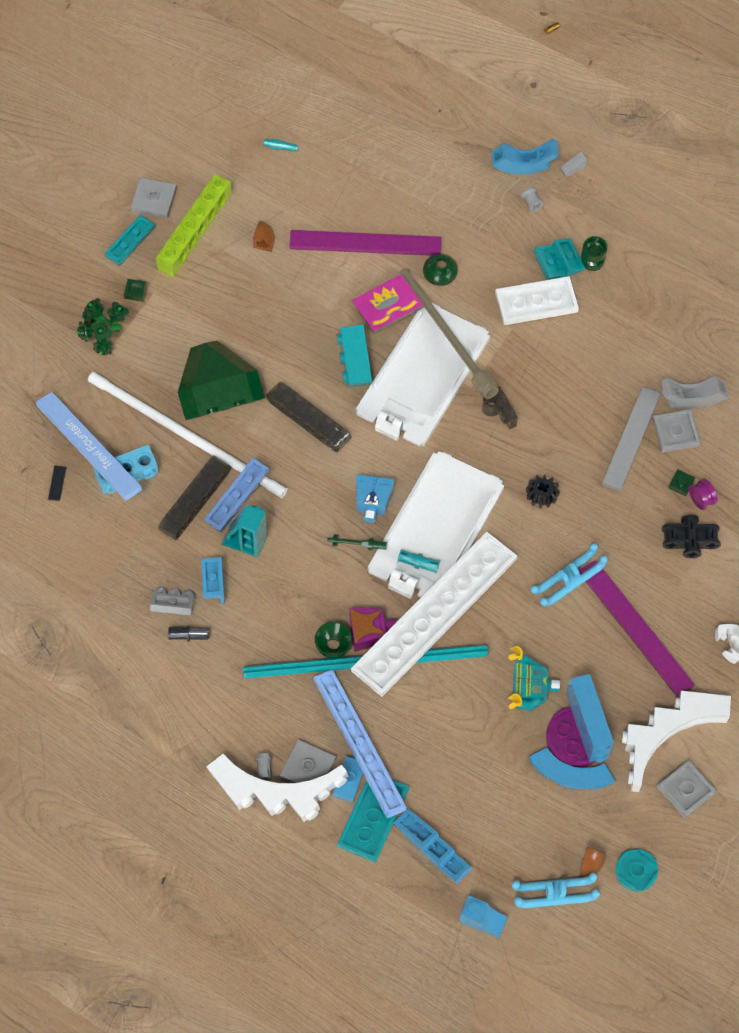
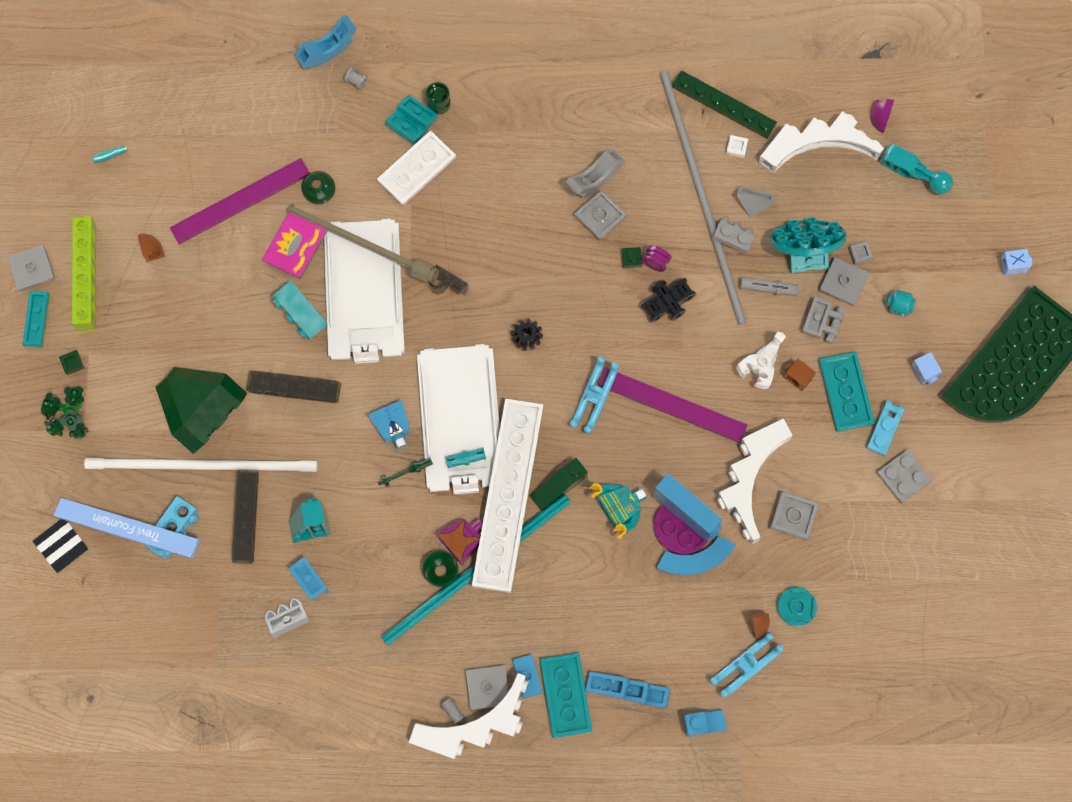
camera: 30 degrees left, 10 degrees up
(25, 430) = (60, 545): none -> black sticker
(57, 483) = (119, 575): black window -> none
(188, 633) = (317, 637): black axle -> none
(236, 495) = (279, 493): medium blue plate -> none
(360, 744) = (517, 642): light blue tile -> none
(492, 632) = (559, 484): none -> dark green slope
(574, 165) = (370, 26): light grey piece -> none
(631, 439) = (568, 244): light grey tile -> none

